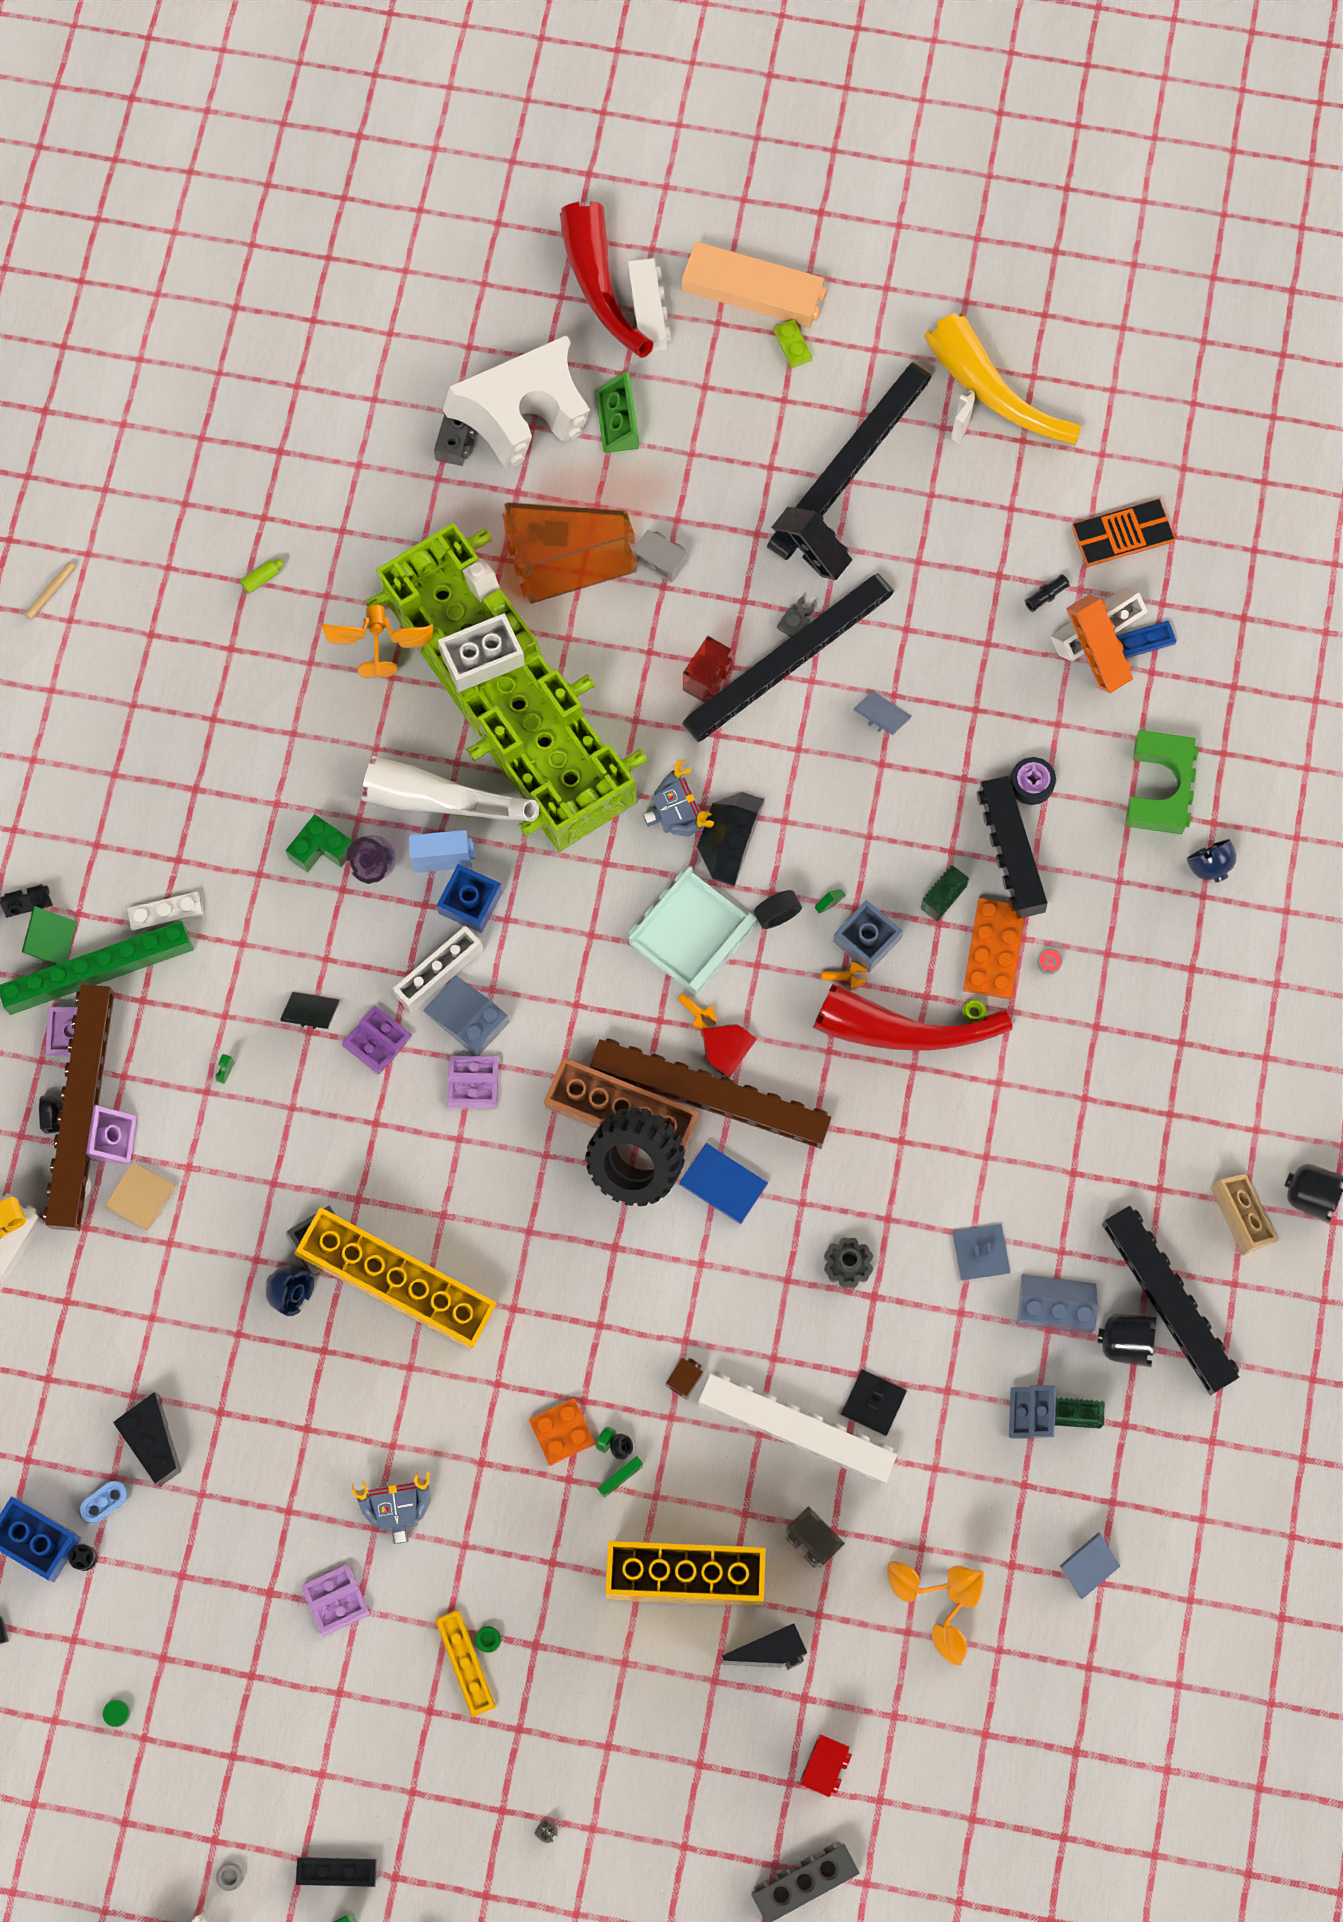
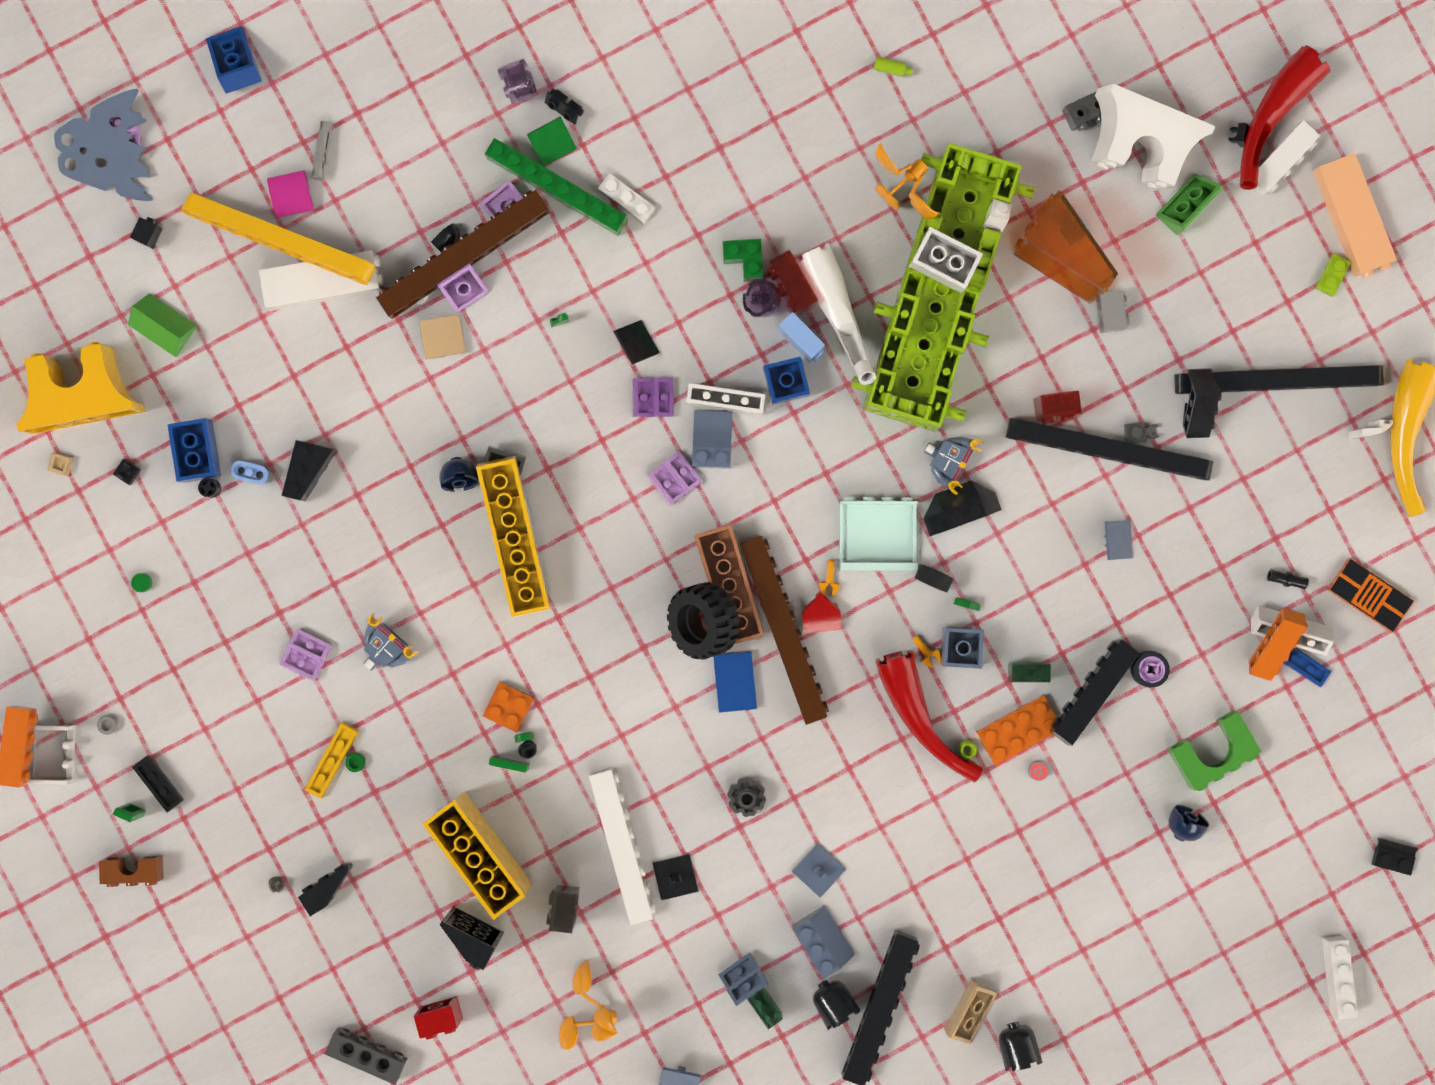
camera: 50 degrees right, 15 degrees up
(381, 817) = (792, 283): none -> clear red brick
(595, 324) = (1241, 134): none -> black tile
(595, 1789) = (322, 894): none -> black slope
(685, 1377) = (598, 754): reddish brown brick -> none

